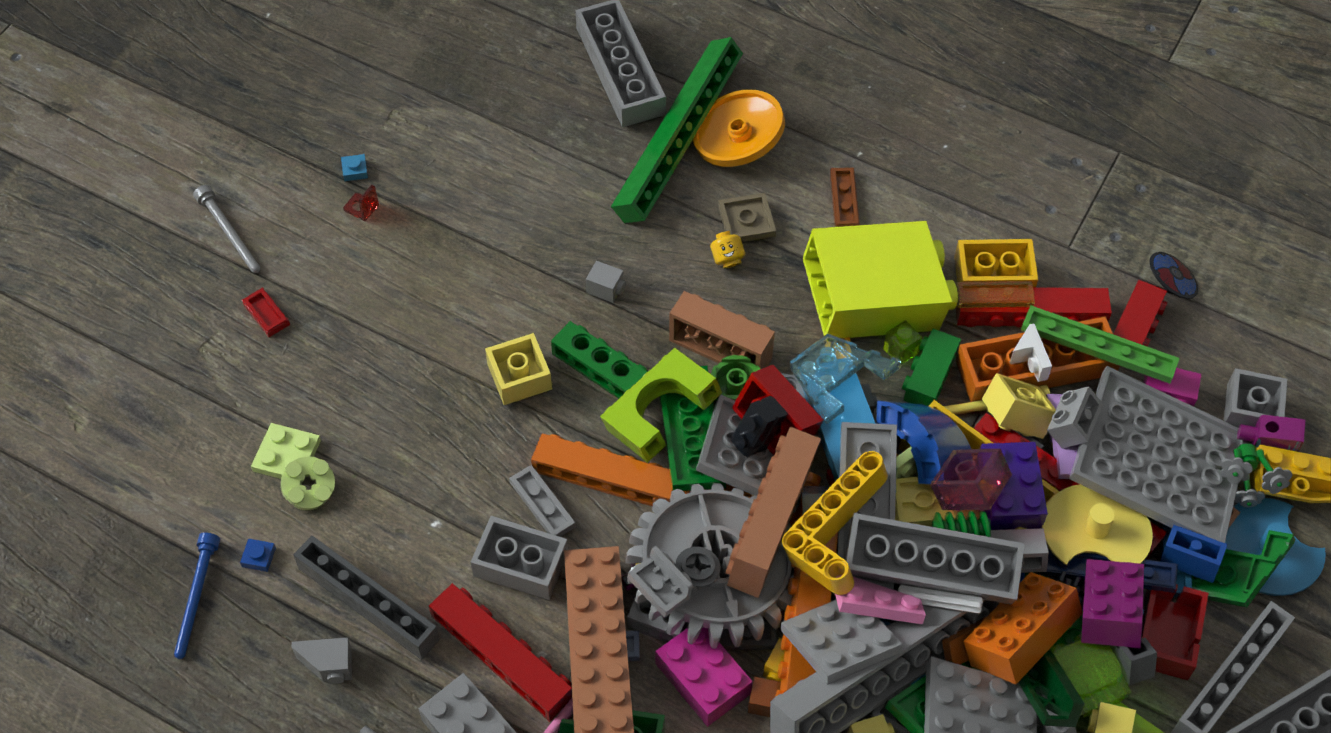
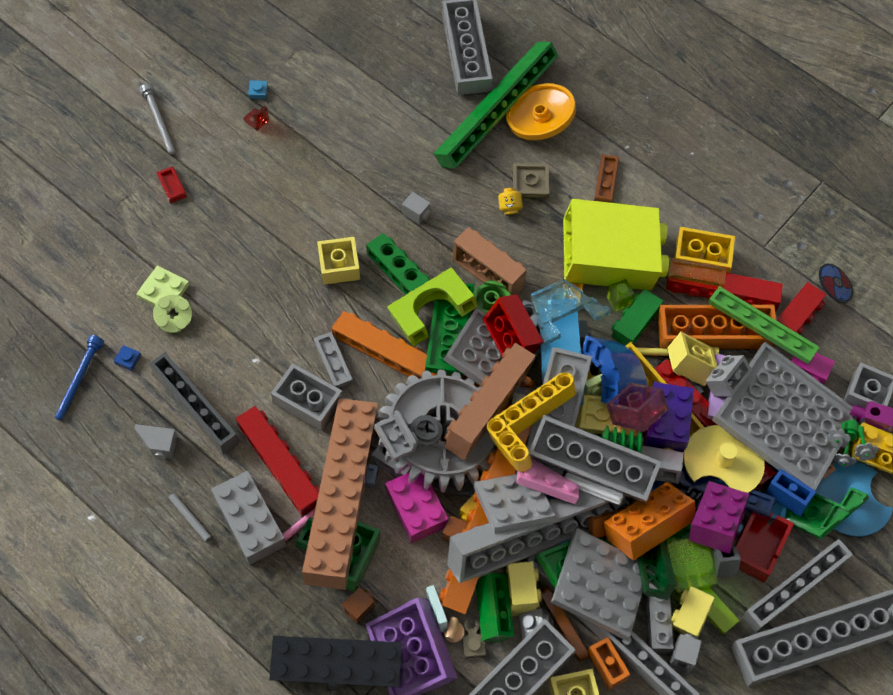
camera: 10 degrees right, 5 degrees up
(758, 426) = (495, 337): black brick -> none
(1032, 350) = (711, 320): white slope -> none

